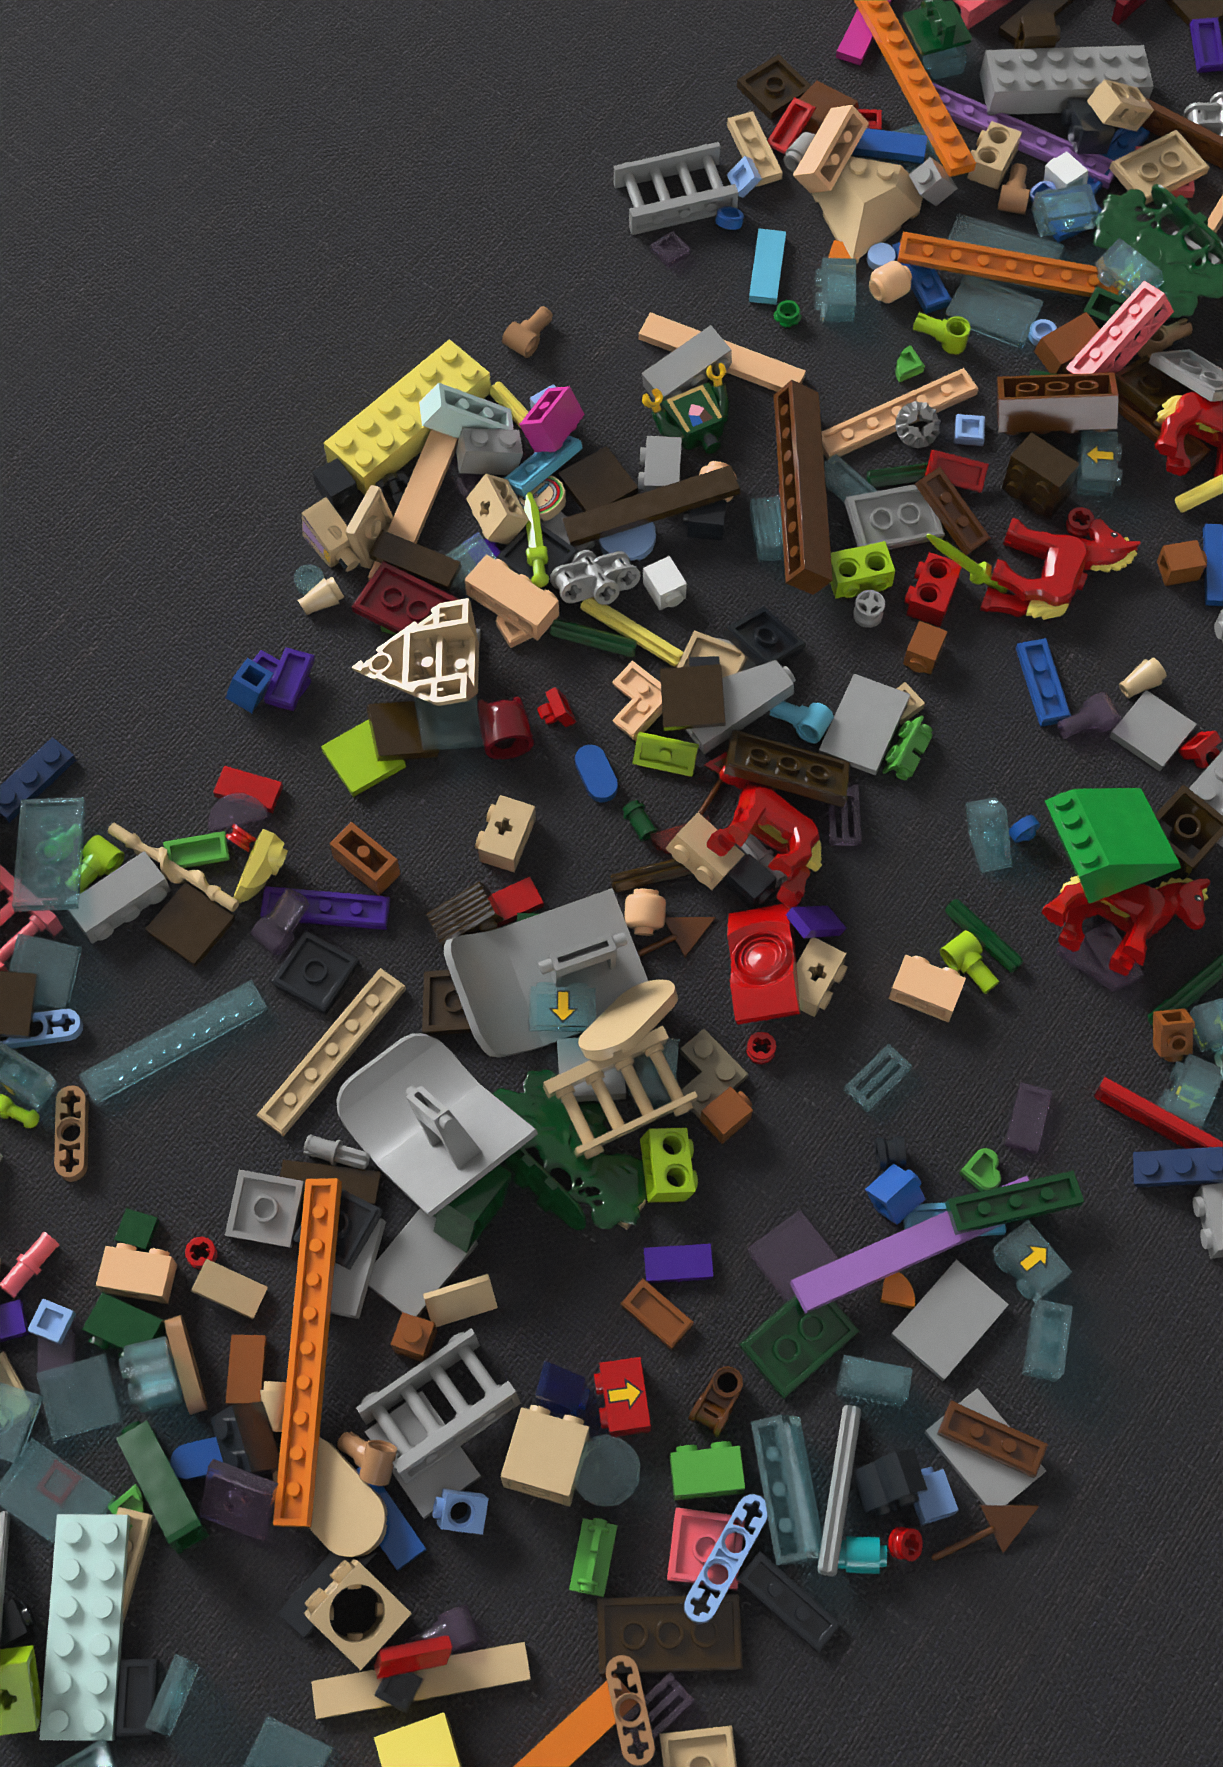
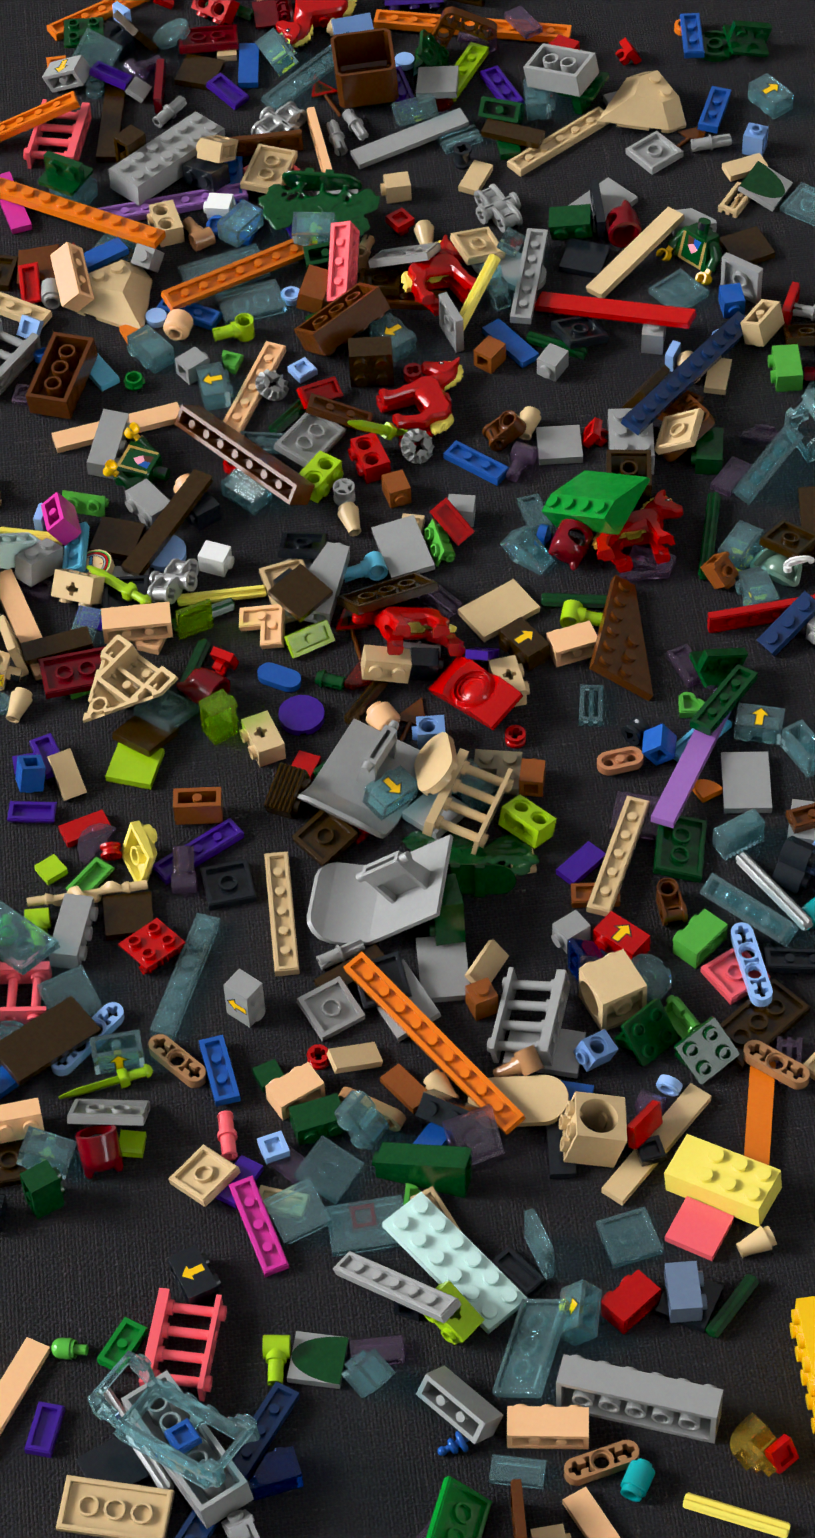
camera: 40 degrees left, 15 degrees down
(94, 1182) = (219, 1070): none -> blue plate
(172, 979) = (152, 945): none -> red hinge
(173, 808) = (51, 869): none -> lime tile
(186, 1125) = (244, 998): none -> light grey brick
(218, 728) = (32, 812): none -> dark purple tile
(282, 715) = (67, 774): none -> tan tile
(482, 773) = (219, 716): none -> clear neon green brick
(498, 1624) = (669, 1085): none -> light blue tile
(535, 686) = (197, 659): none -> dark green axle
(536, 1540) = (647, 1032): none -> dark green bracket
(570, 638) = (194, 618): none -> clear neon green piece
(571, 1622) = (706, 1050): none -> bracket
(574, 836) = (301, 715): none -> dark purple tile
(581, 1339) = (570, 926): none -> light grey brick
(600, 414) = (87, 503): none -> bright green hinge
(682, 979) = (426, 728): none -> medium blue brick
(716, 254) = (61, 375): none -> reddish brown brick
(719, 1292) = (618, 856): none -> tan tile
(839, 1173) = (617, 760): none -> nougat plate
(845, 644) = (349, 516): none -> tan cone
(858, 380) = (214, 386): none -> clear light blue brick
(861, 340) = (187, 363): none -> light grey brick
(875, 945) = (525, 643): none -> dark brown brick
(893, 880) = (498, 609): none -> tan tile
(940, 735) = (452, 521): none -> red tile
(966, 727) = (465, 505): none -> light grey brick
(973, 1035) = (620, 641): none -> reddish brown wing
(981, 612) = (408, 447): none -> light grey gear
(1039, 864) = (567, 548): none -> dark red piece
(1047, 783) = (531, 511): none -> clear light blue tile
(1052, 1149) = (716, 664): none -> dark green bracket
(1105, 668) = (504, 429): none -> reddish brown piece
(1125, 27) = (169, 111): none -> light grey axle
(1172, 493) = (451, 322): none -> light grey tile

